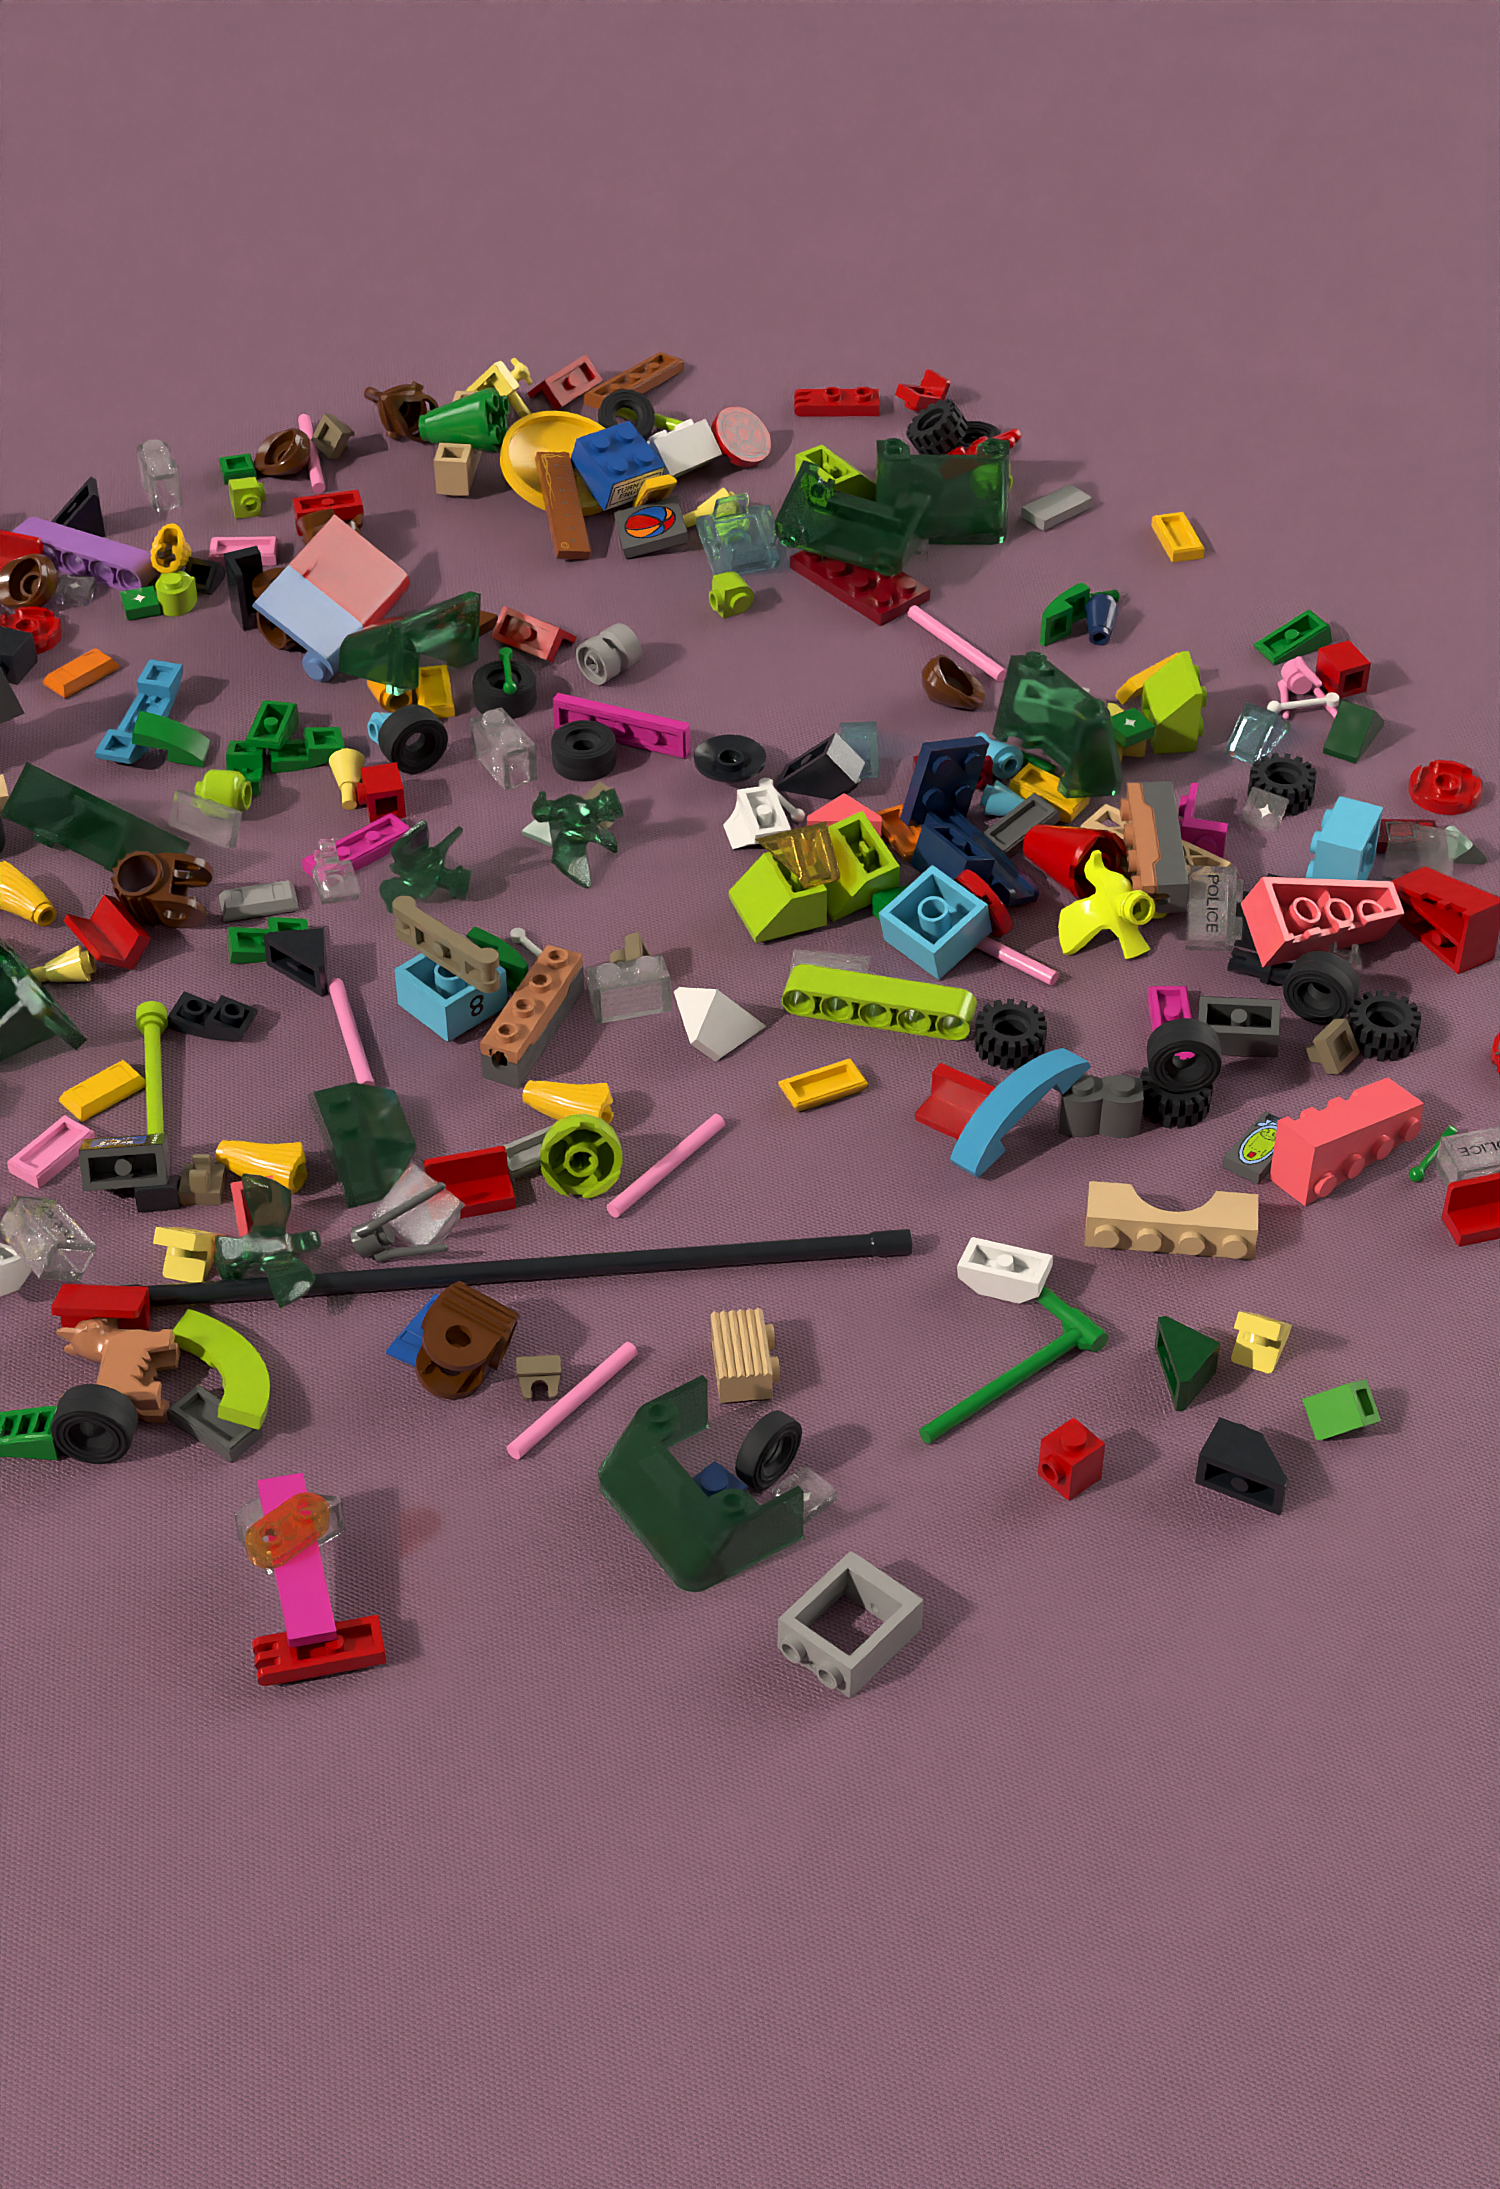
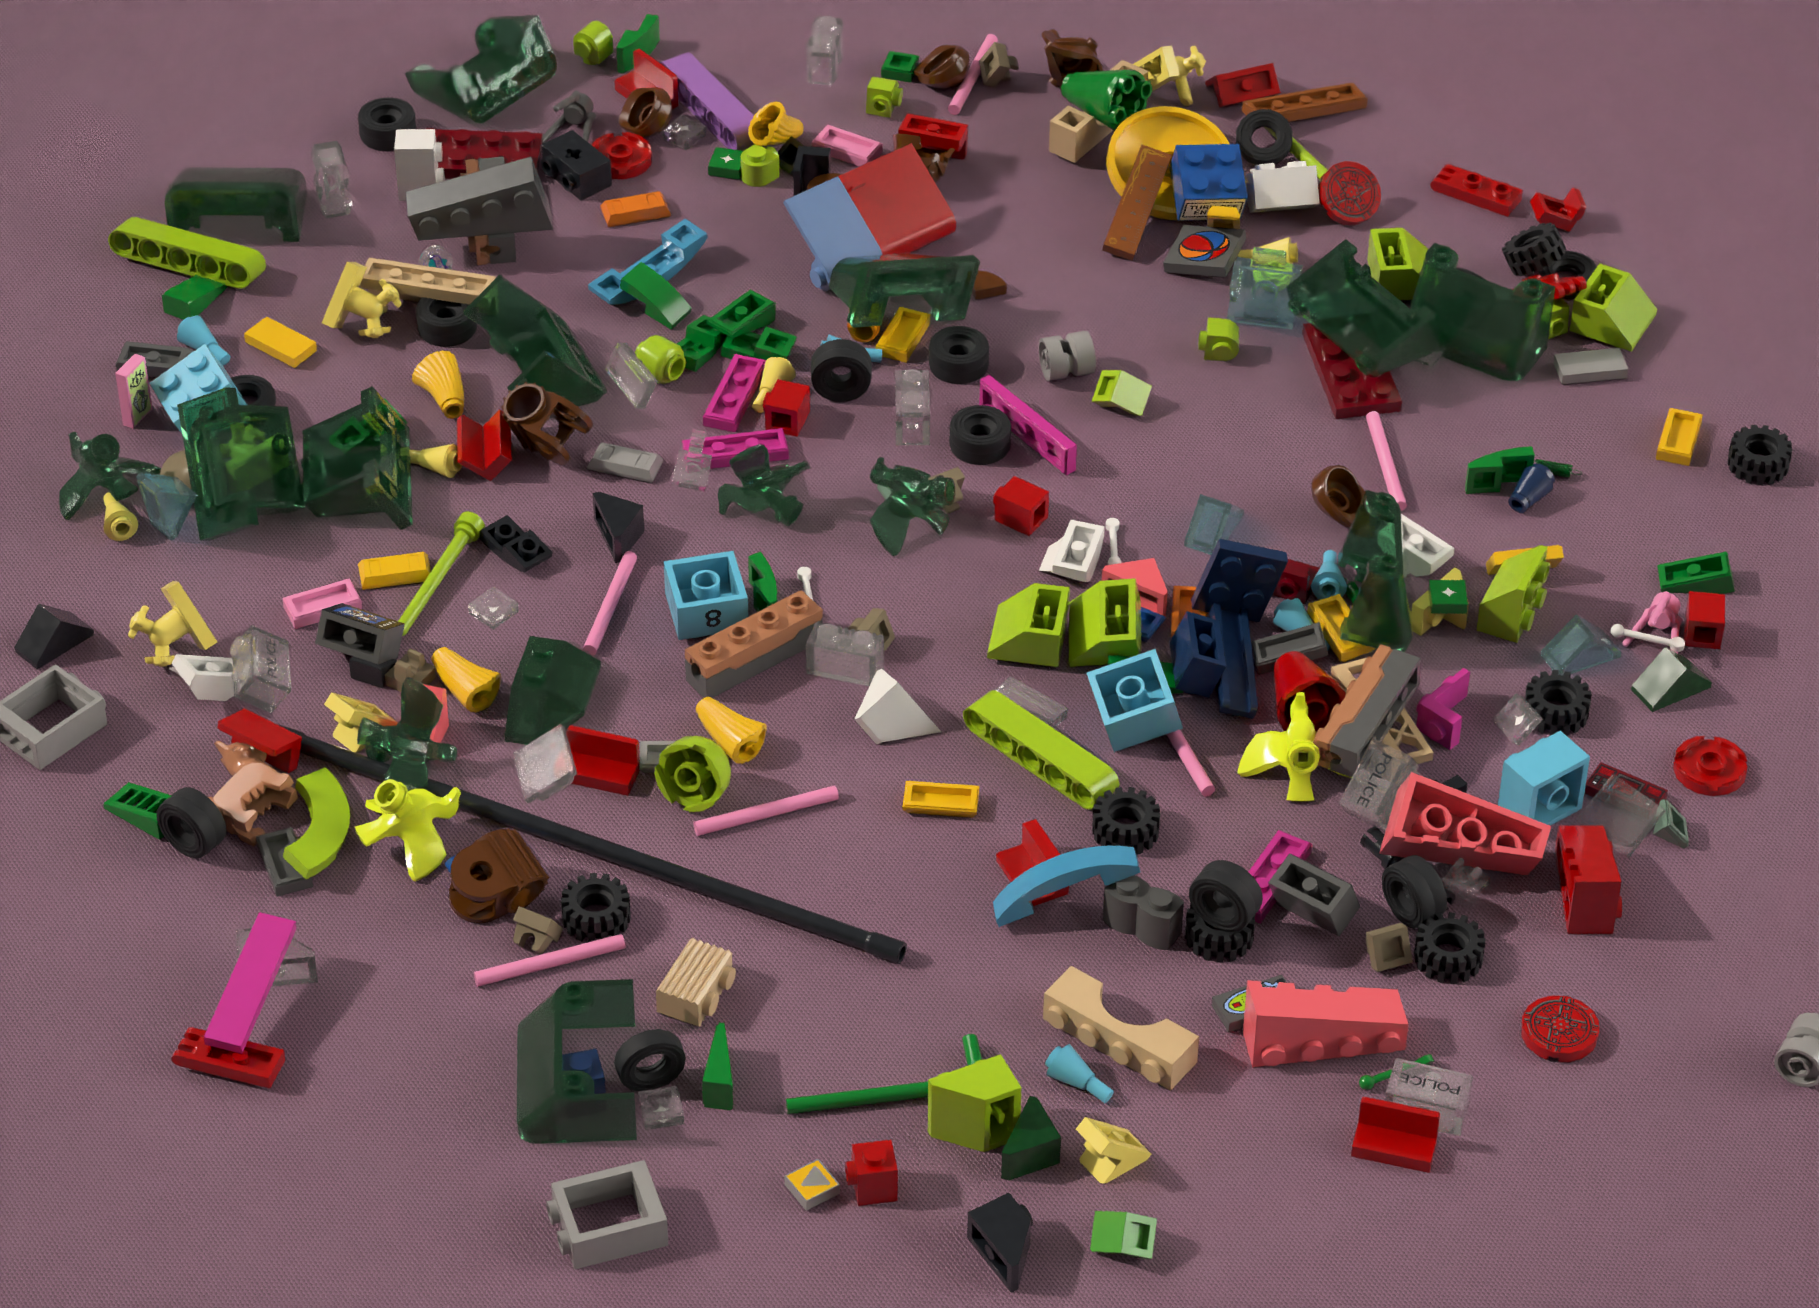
camera: 30 degrees right, 0 degrees up
(83, 510) = (738, 65): black slope -> none
(235, 1085) = (493, 608): none -> clear tile
(247, 944) = (582, 493): green slope -> none
(292, 1530) = (252, 958): clear orange plate -> none
(315, 800) = (734, 393): none -> dark pink tile
(322, 1318) = (410, 817): none -> neon yellow animal
(377, 1234) = (501, 769): dark grey plant -> none
(446, 946) = (711, 565): dark tan plate -> none
(506, 655) = (976, 323): green hinge -> none
(529, 634) = (1021, 312): red panel -> none
(576, 1310) = (595, 892): none -> black tyre
(675, 796) = (1021, 505): none -> red brick
(681, 665) = (1121, 390): none -> lime panel
(729, 758) = (1093, 489): black dish -> none
(806, 853) = (1055, 596): clear yellow slope -> none
(823, 770) = (1163, 532): black slope -> none
(842, 1434) = (717, 1078): none -> green slope
(999, 916) = (1188, 701): red tile -> none
(1004, 1270) = (951, 1006): white slope -> none
(1013, 1500) = (812, 1184): none -> tile
(1041, 455) = (1612, 309): none -> lime slope
(1119, 1348) = (975, 1104): none -> lime slope
(1159, 1278) = (1071, 1069): none -> medium azure cone
(1258, 526) = (1758, 468): none -> black tyre

